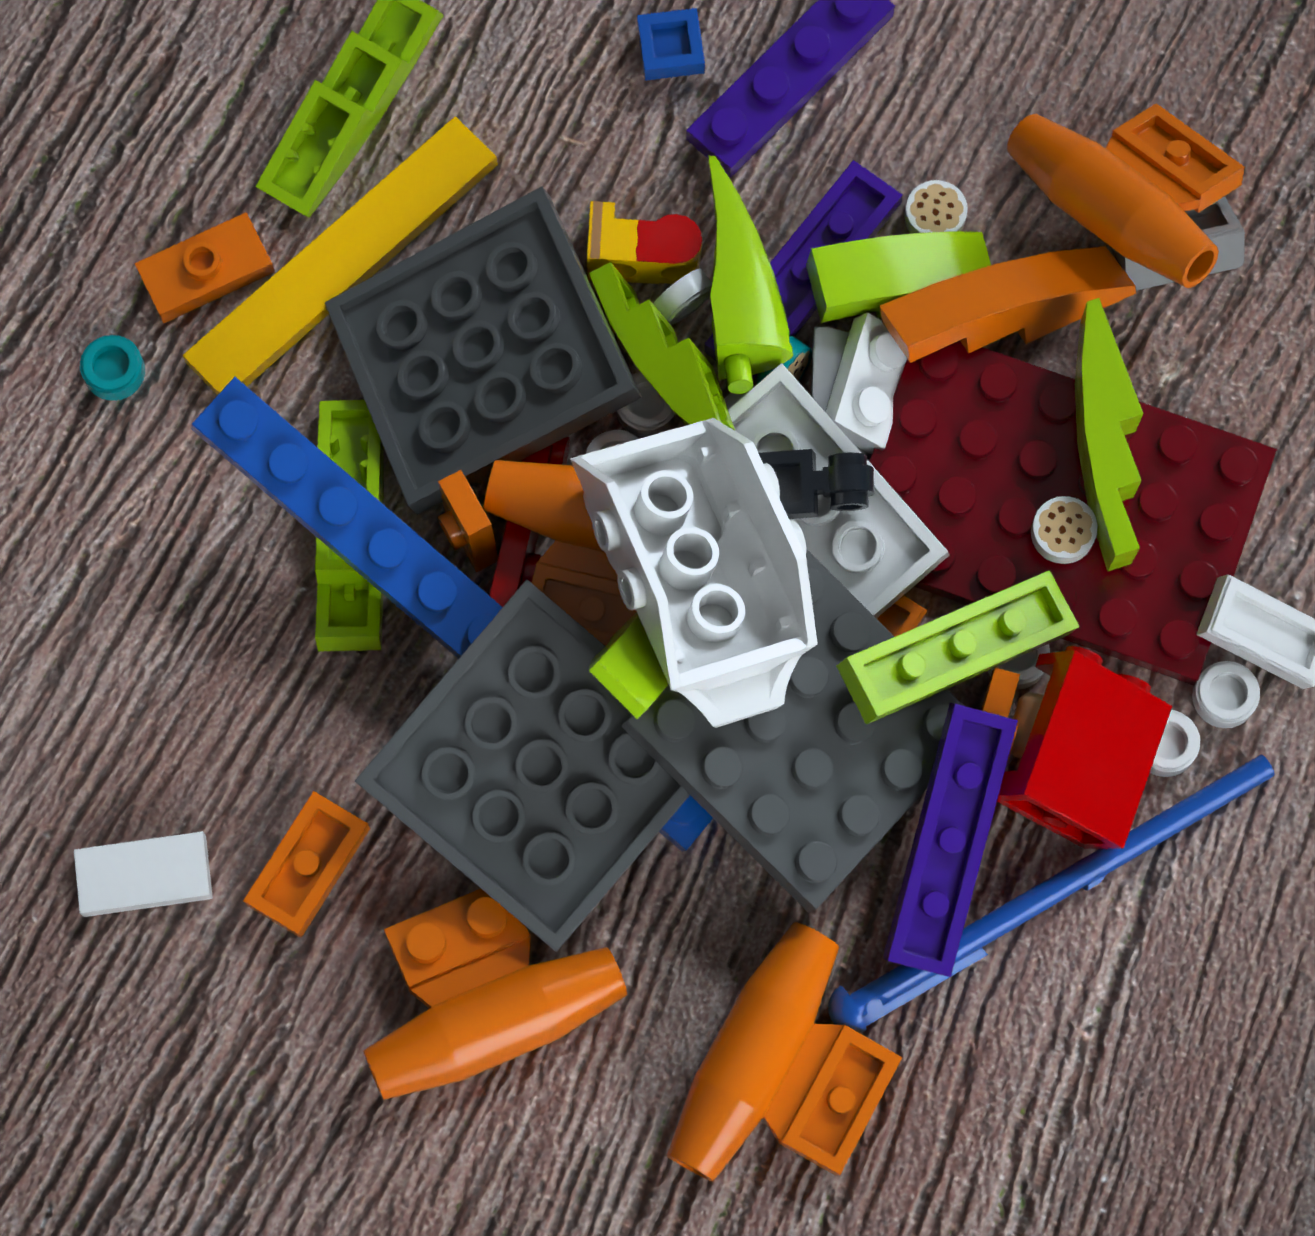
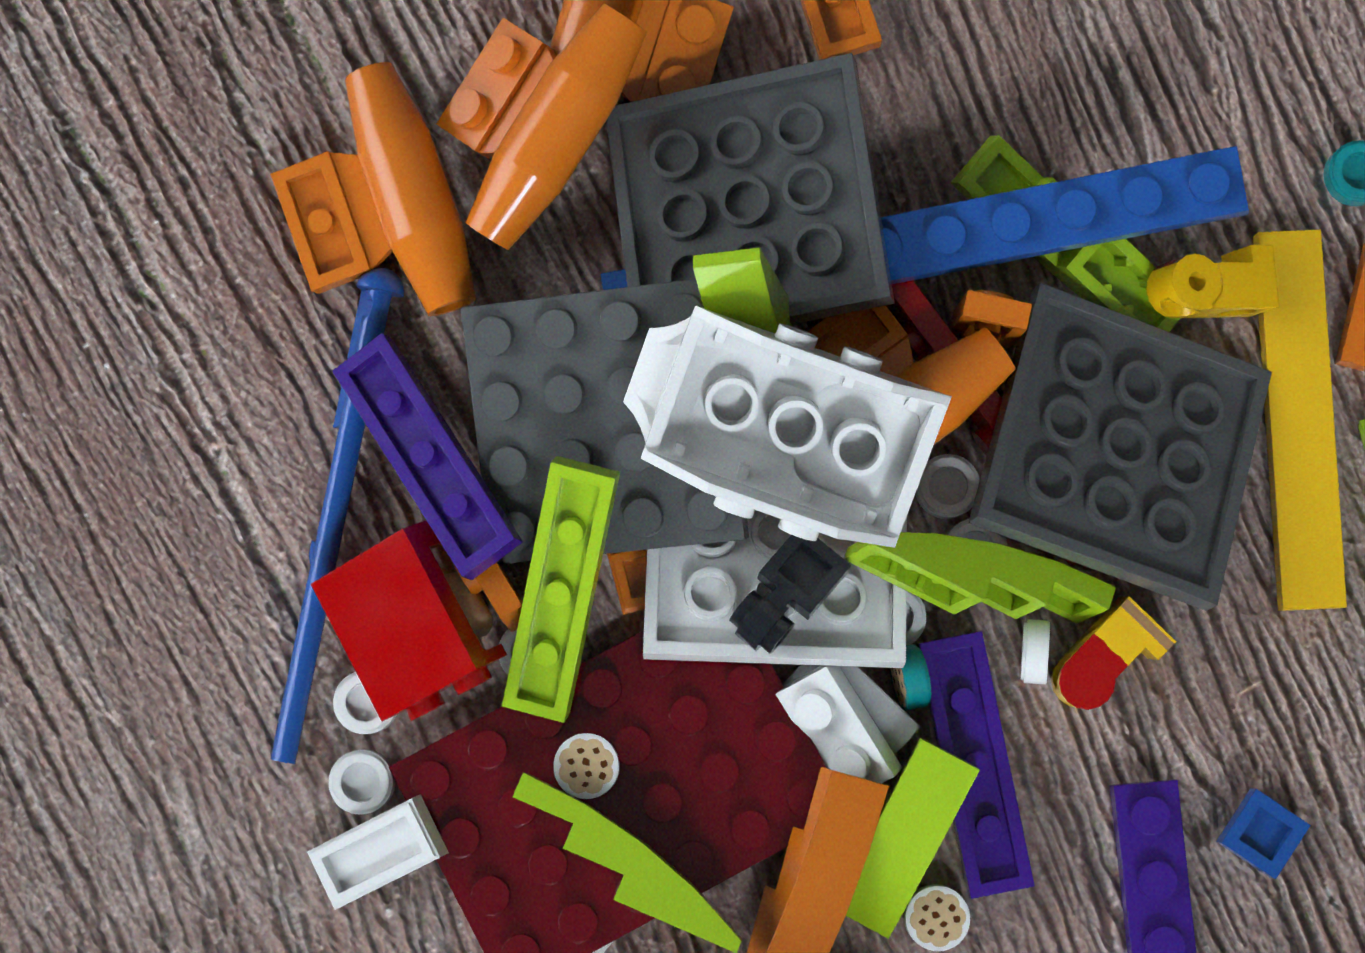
camera: 130 degrees right, 10 degrees up
(297, 384) = (1203, 289): none -> yellow leg
(610, 995) = (537, 114): none -> orange plate
(744, 295) = (990, 689): lime piece -> none

